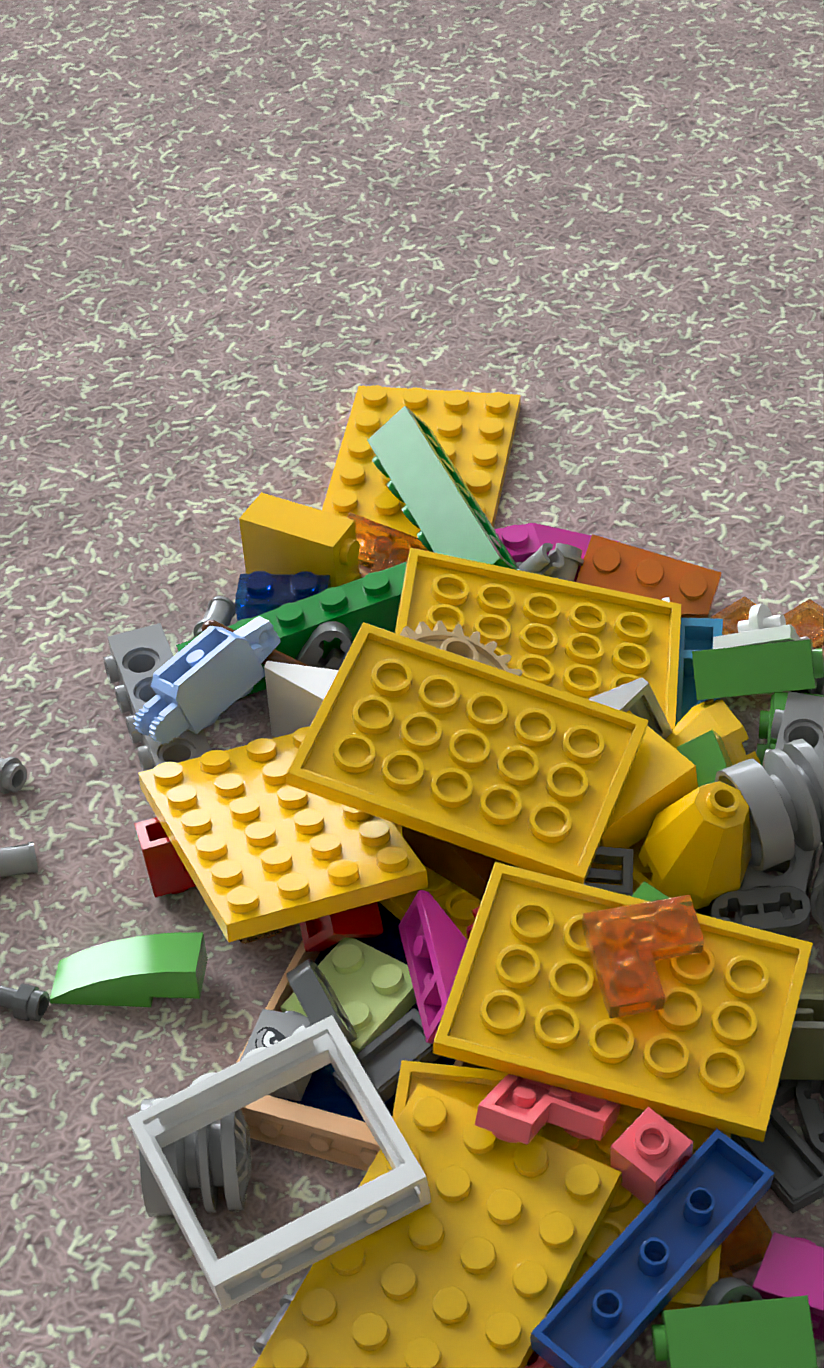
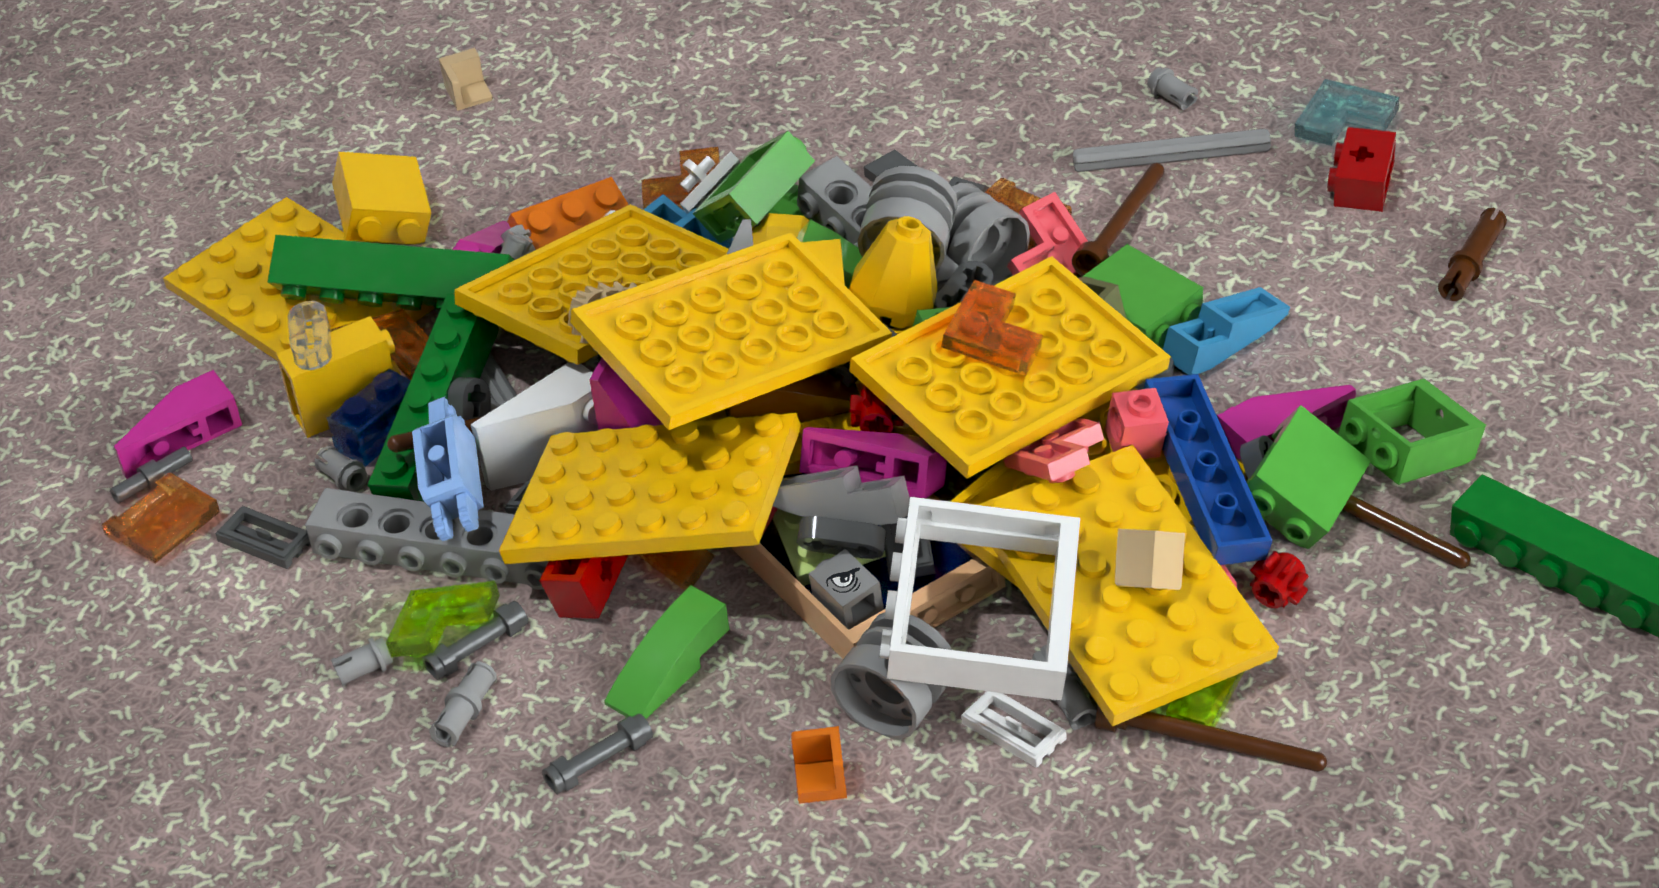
camera: 55 degrees left, 0 degrees up
(63, 1170) = (818, 764): none -> orange panel
(78, 554) = (162, 518): none -> clear orange plate
(79, 778) = (432, 609): none -> clear neon green plate
(106, 599) = (259, 541): none -> dark grey tile
(110, 836) = (507, 619): none -> dark grey bar
(126, 518) = (149, 474): none -> dark grey bar
(191, 496) = (184, 417): none -> dark pink slope
(218, 1338) = (1009, 732): none -> white tile
(290, 497) = (301, 335): none -> clear beam
(361, 976) = (844, 496): none -> light grey slope
(449, 1277) = (1149, 559): none -> tan panel
(555, 447) = (381, 198): none -> yellow brick
(772, 408) = (464, 79): none -> tan panel

